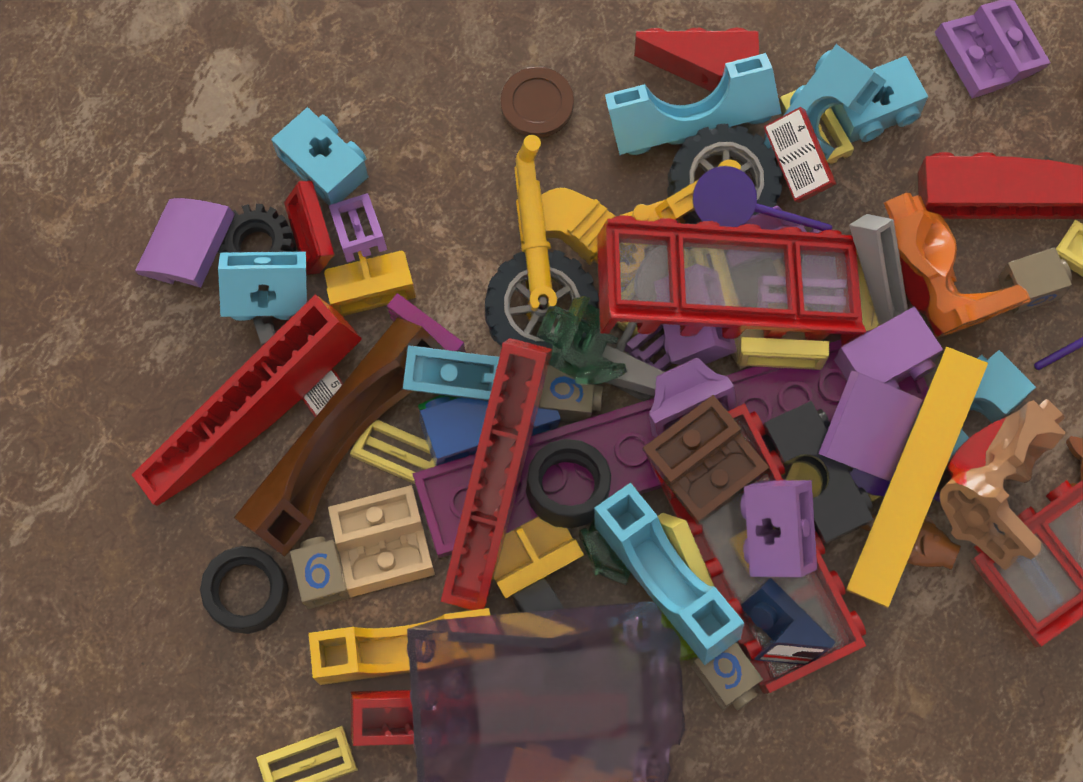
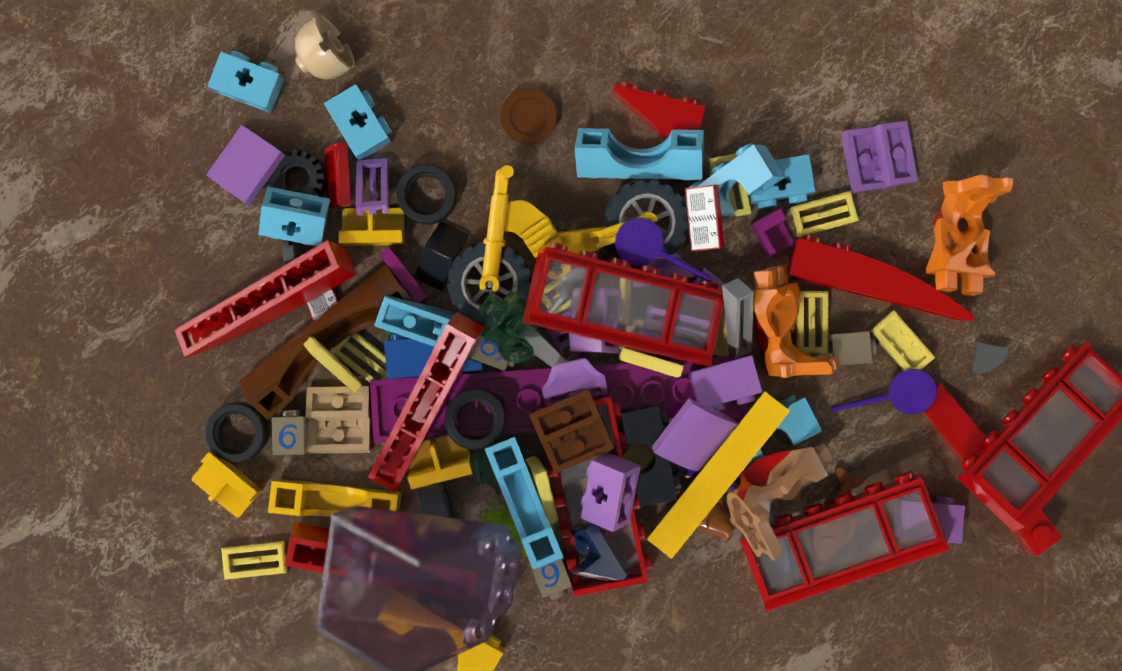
camera: 15 degrees right, 15 degrees up
(165, 143) = (228, 81): none -> medium azure brick
(244, 666) = (226, 484): none -> yellow panel
(253, 80) = (321, 51): none -> tan cylinder
(357, 460) = (333, 364): none -> light yellow tile
(424, 195) = (410, 177): none -> black tyre
(465, 296) = (439, 255): none -> black slope
(885, 167) = (772, 233): none -> magenta panel
(918, 146) = (797, 221): none -> light yellow tile
(988, 255) = (811, 295): none -> light yellow tile

